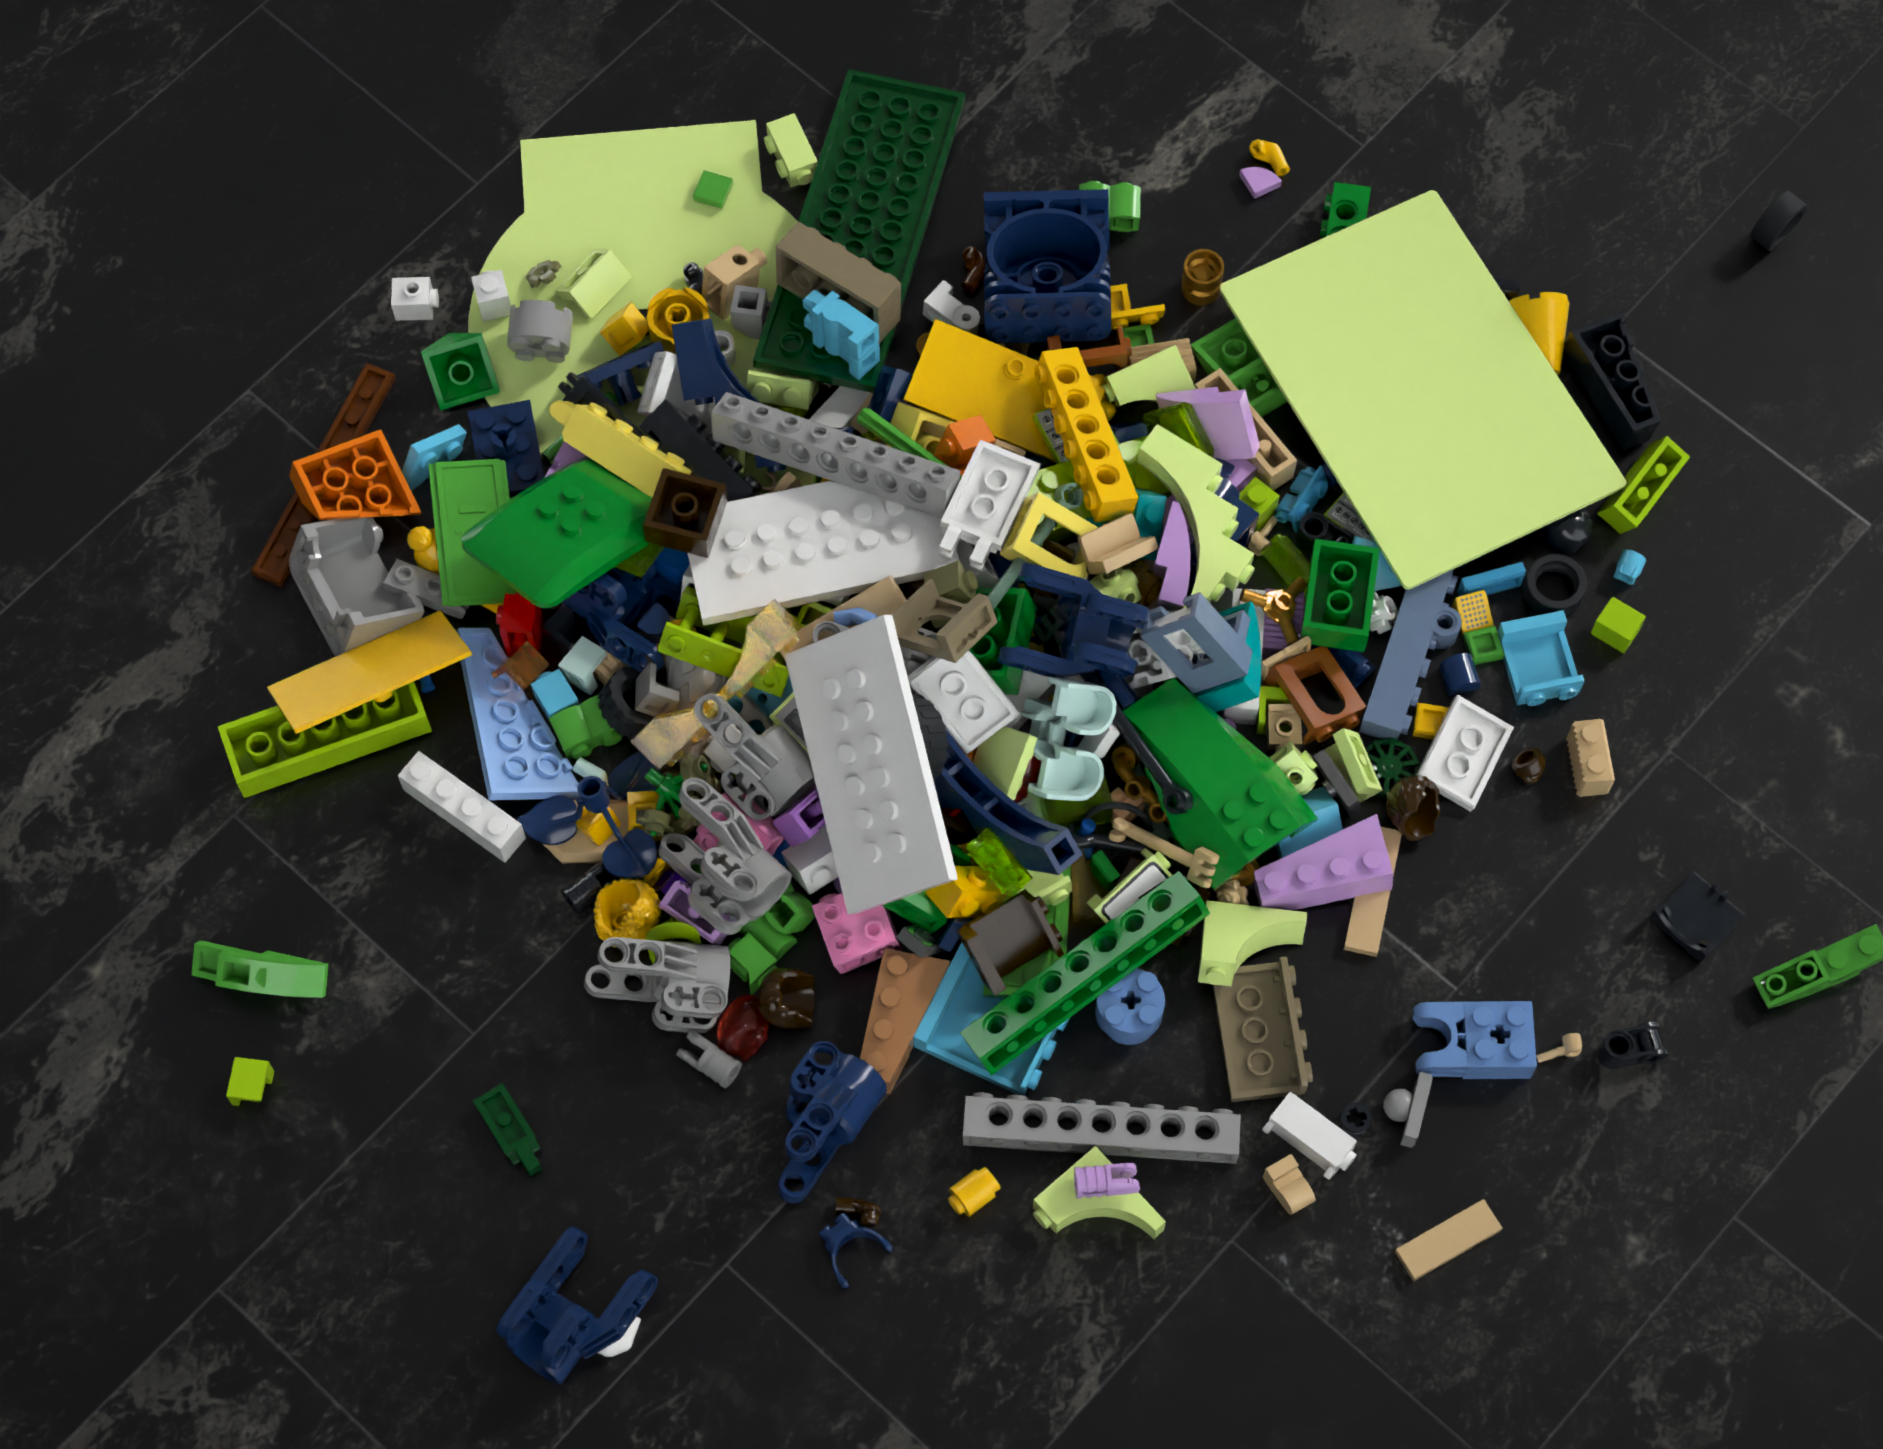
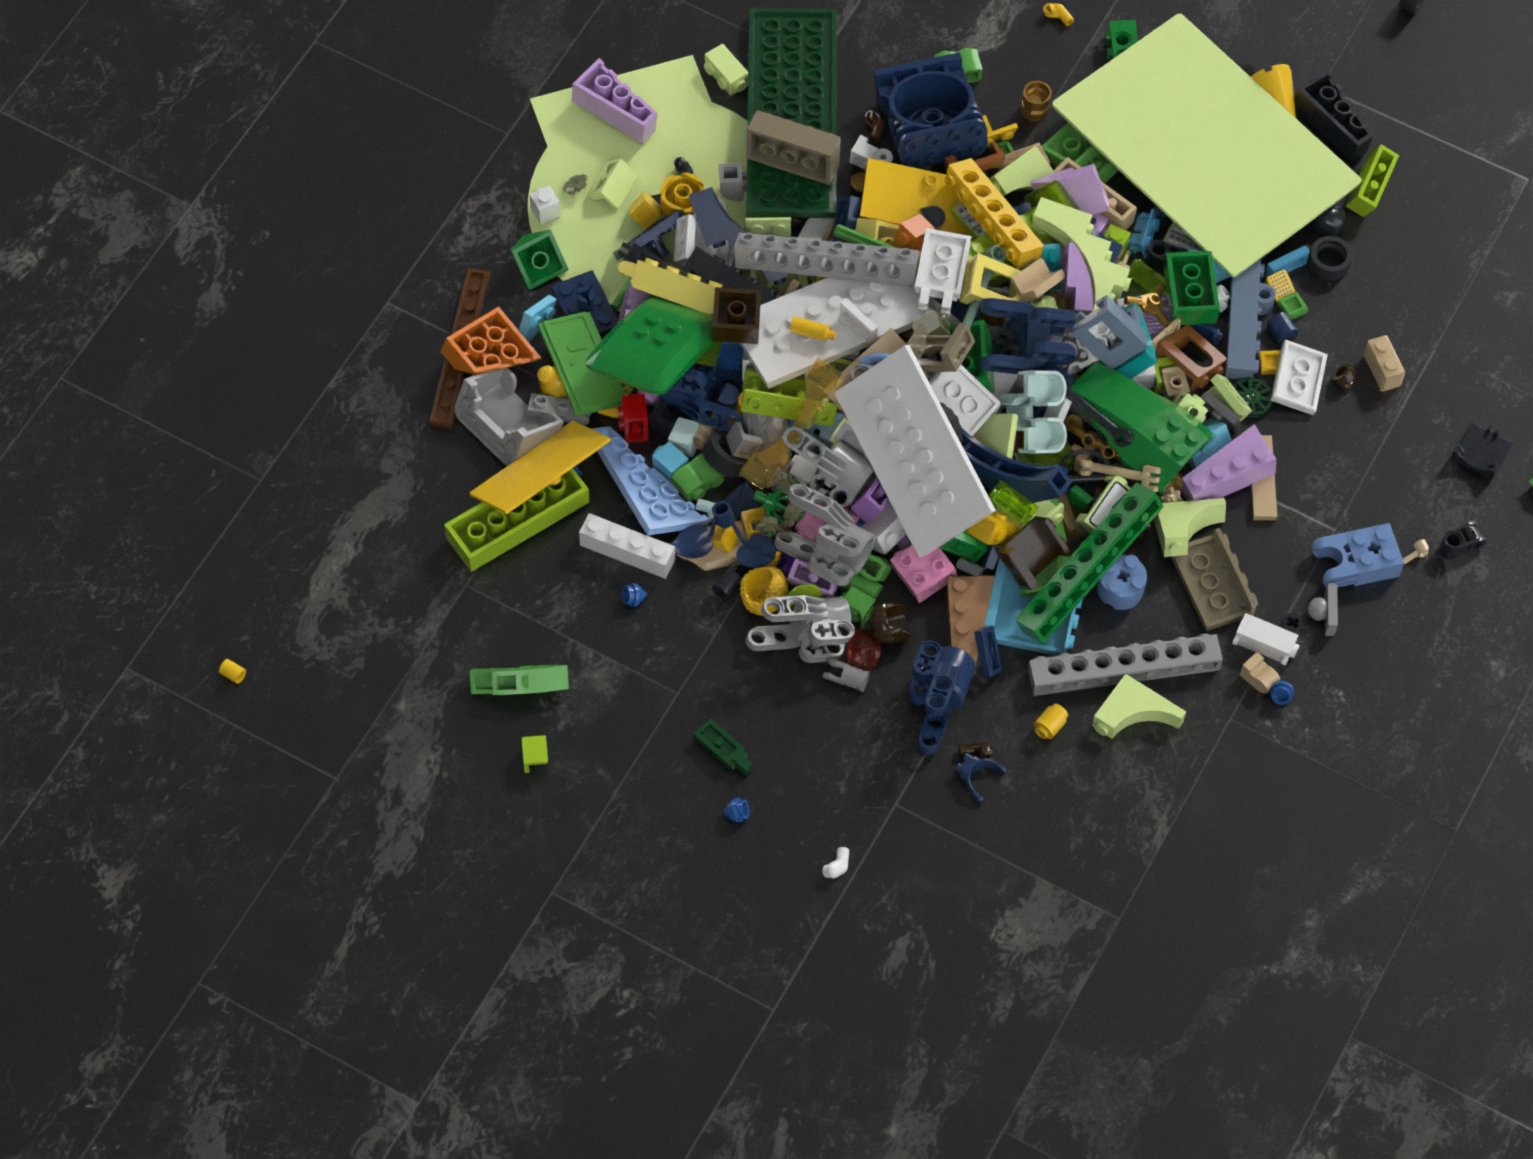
camera: 15 degrees left, 5 degrees down
(413, 298) = (489, 218): white brick -> none
(452, 878) = (633, 594): none -> blue plate
(503, 1226) = (737, 810): none -> blue plate
(522, 665) = (643, 442): clear orange panel -> none
(539, 331) = (587, 221): light grey brick -> none
(554, 1332) = (796, 865): dark blue piece -> none
(624, 167) = (614, 102): none -> lavender wedge
(713, 189) = (677, 106): bright green tile -> none
(725, 272) = (711, 155): tan torso -> none
(783, 554) = (812, 329): none -> yellow cylinder
(843, 331) = (806, 178): medium azure hips -> none
(849, 555) = (858, 320): none -> white tile
(911, 1070) = (988, 651): none -> dark blue tile
(1005, 420) = (933, 215): none -> black tile
(1105, 1180) = (1139, 692): lavender hinge -> none
(1259, 180) = (1055, 31): lavender tile -> none
(1313, 1219) = (1281, 692): none -> blue plate
(1413, 806) = (1276, 416): dark brown hair -> none
(1448, 1240) = (1374, 687): tan tile -> none
(1539, 659) = (1332, 307): medium azure panel -> none
(1618, 625) = (1379, 274): lime panel -> none
(1629, 566) = (1376, 236): medium azure hose -> none

